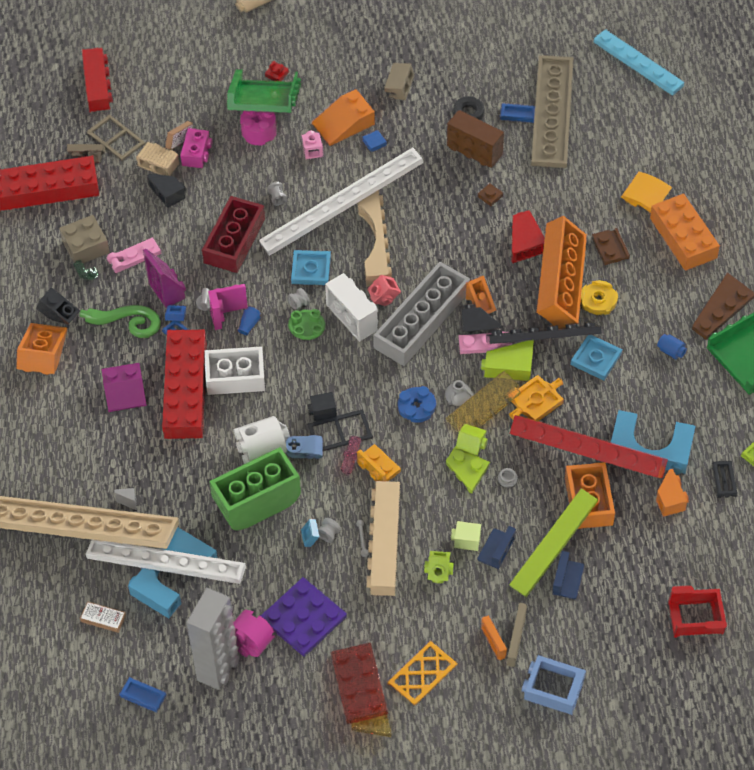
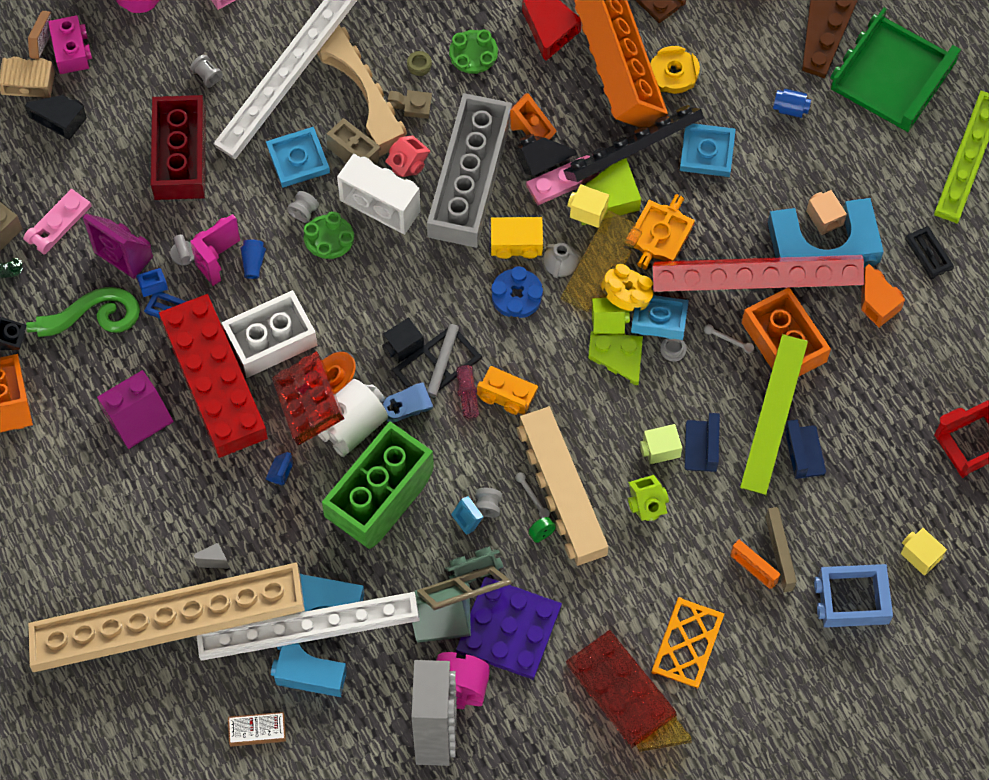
camera: 25 degrees left, 10 degrees up
(201, 459) = (280, 469): none -> blue slope
(237, 417) = (307, 398): none -> clear red plate
(261, 588) = (443, 623): none -> sand green slope
(264, 410) = (340, 369): none -> orange dish
(281, 577) = (459, 582): none -> dark tan window
(290, 568) = (483, 558): none -> sand green hinge
(343, 429) = (442, 360): none -> light grey bar
(351, 268) = (346, 139): none -> dark tan hinge
(356, 560) = (541, 529): none -> green tile
(406, 260) = (414, 104): none -> dark tan plate
(423, 236) = (419, 63): none -> olive tile
(433, 367) = (516, 237): none -> yellow brick
(464, 240) = (473, 51): none -> bright green dish
(489, 361) = (588, 205): none -> light yellow brick
(500, 426) = (639, 288): none -> yellow plate
(506, 452) = (661, 318): none -> dark azure plate
(561, 496) = (748, 347): none -> light grey hinge
(619, 673) = (923, 550): none -> light yellow brick
(660, 425) = (826, 212): none -> light nougat brick

